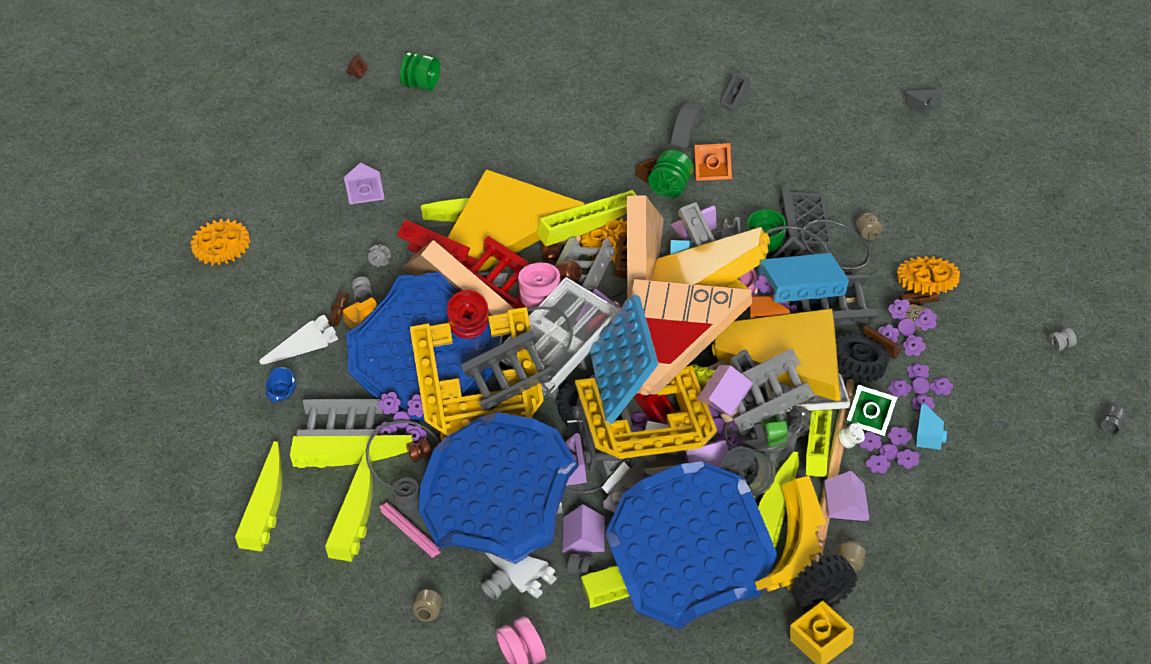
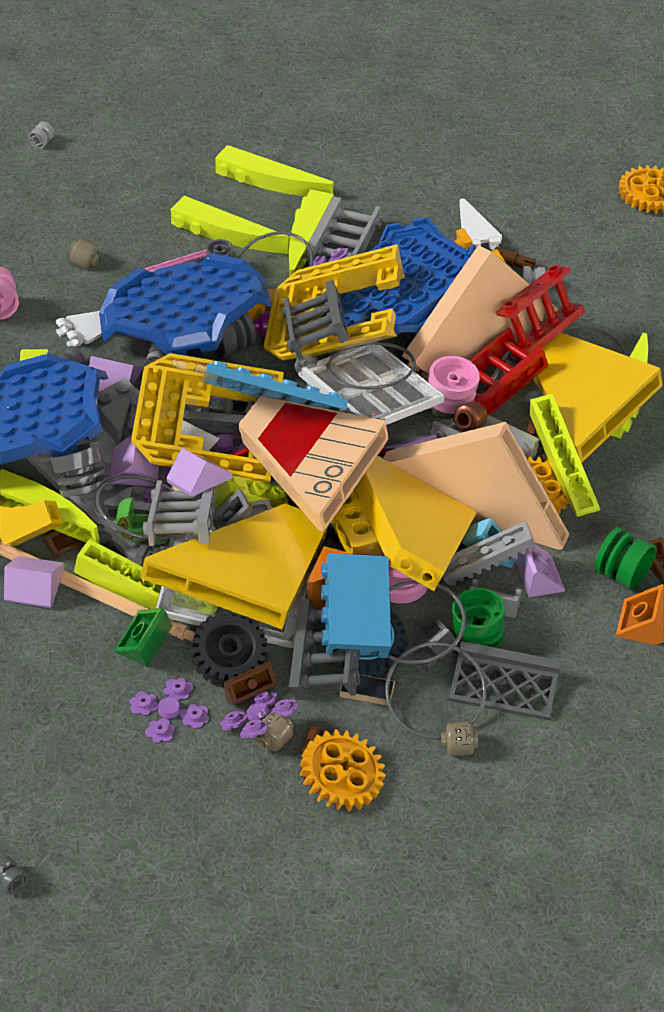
camera: 100 degrees right, 0 degrees up
(280, 384) = (413, 201): blue hair -> none
(379, 255) = (584, 290): light grey gear -> none
(414, 451) = (278, 275): copper wheel -> none
(470, 304) = (402, 290): red wheel -> none
(496, 584) = (80, 300): light grey wheel -> none
(851, 435) = (111, 609): white wheel -> none
(889, 451) = (86, 645): medium lavender plant -> none
(930, 429) = (93, 686): medium azure slope -> none
(1064, 339) = (166, 873): light grey wheel -> none

